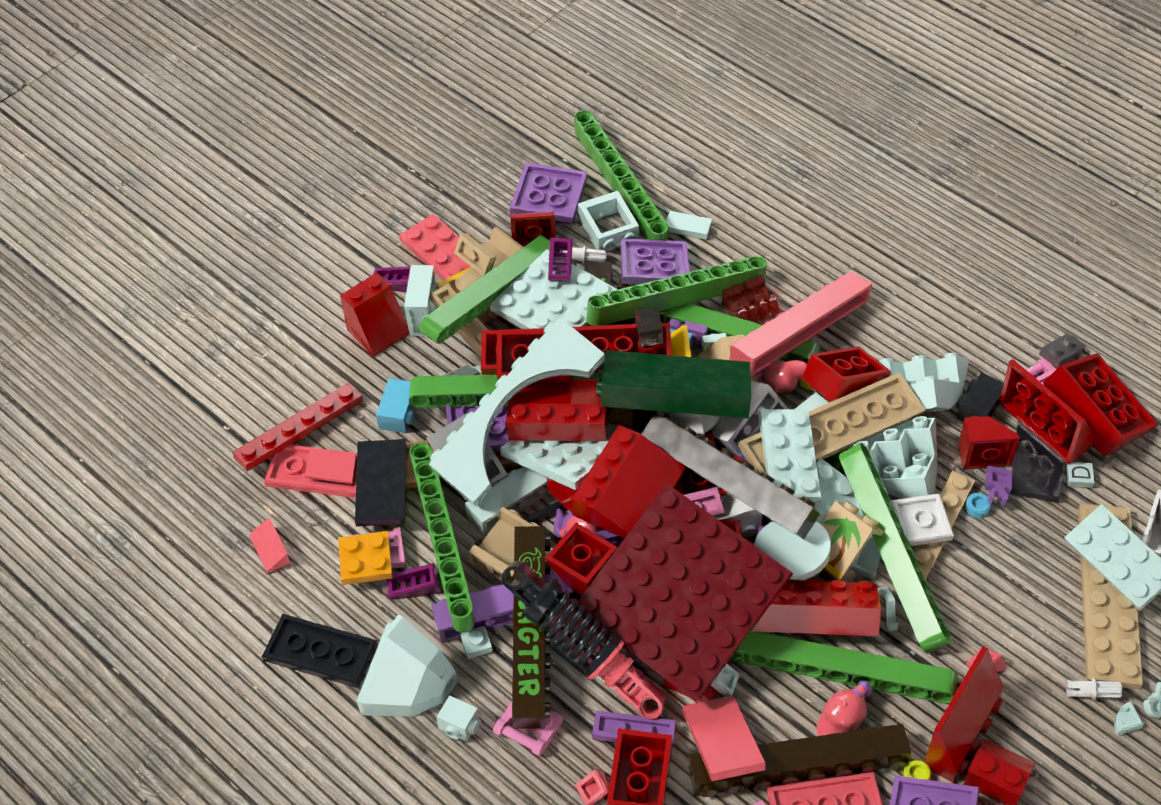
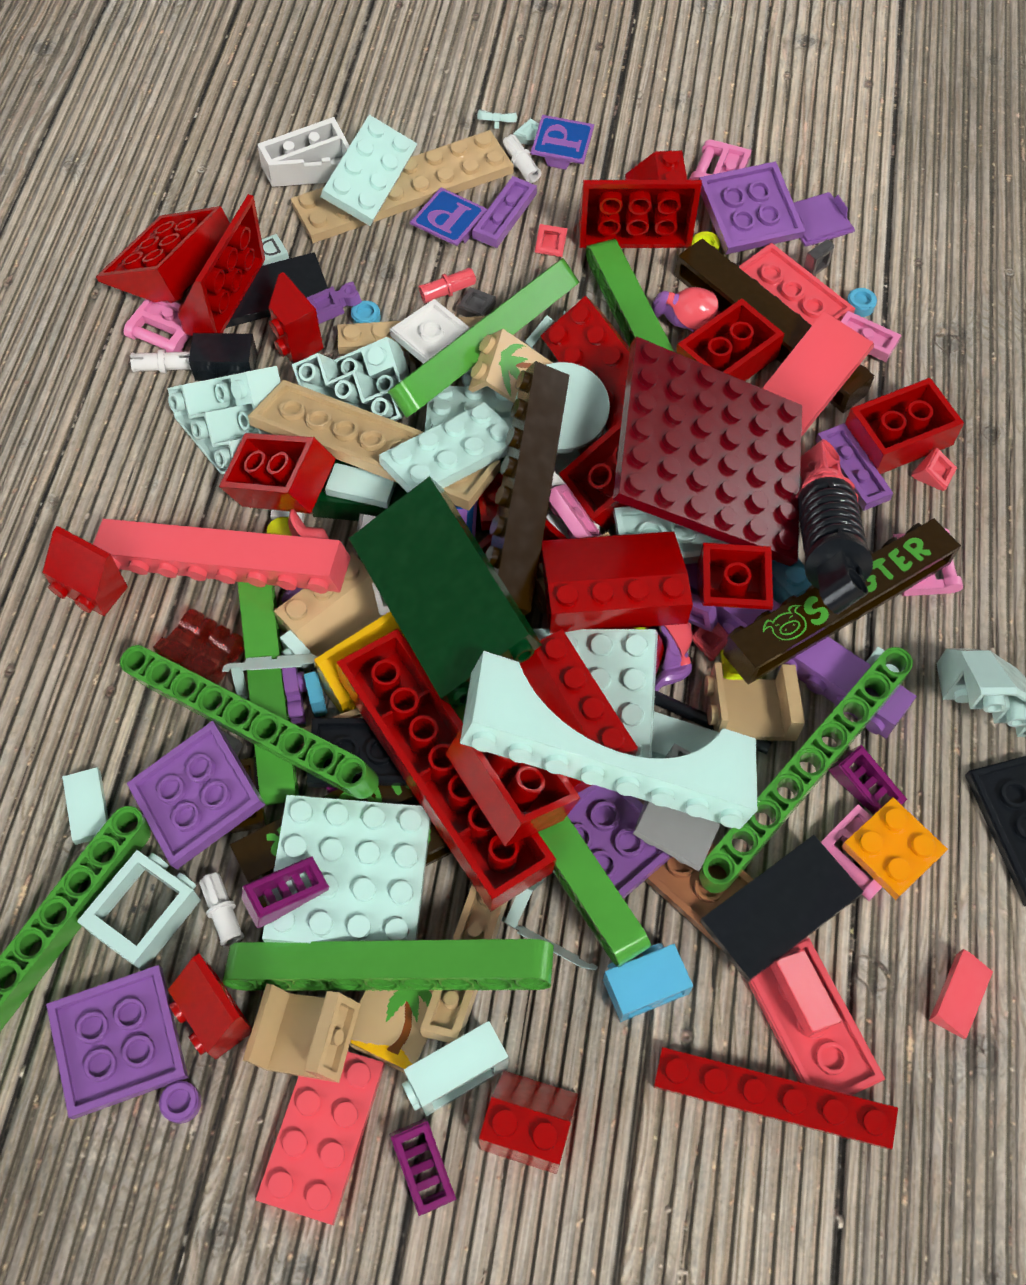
camera: 125 degrees left, 10 degrees up
(458, 719) = (983, 623): light aqua brick -> none
(501, 207) = (180, 1102): none -> medium lavender tile
(648, 327) = (370, 668): clear smoke brick -> none
(704, 325) = (259, 663): none -> light aqua piece
(787, 700) = (734, 342): none -> red brick
(832, 266) = (82, 573): none -> red slope
(946, 578) = (476, 303): none -> flat silver tile
(975, 565) = (447, 285): none -> coral axle
(1000, 367) = (160, 361): none -> white pin
(1035, 644) = (504, 212): none -> medium lavender plate
(1047, 599) = (449, 217): none -> piece
(1062, 350) = (102, 317): flat silver plate -> none
(1098, 729) = (562, 141): none -> piece

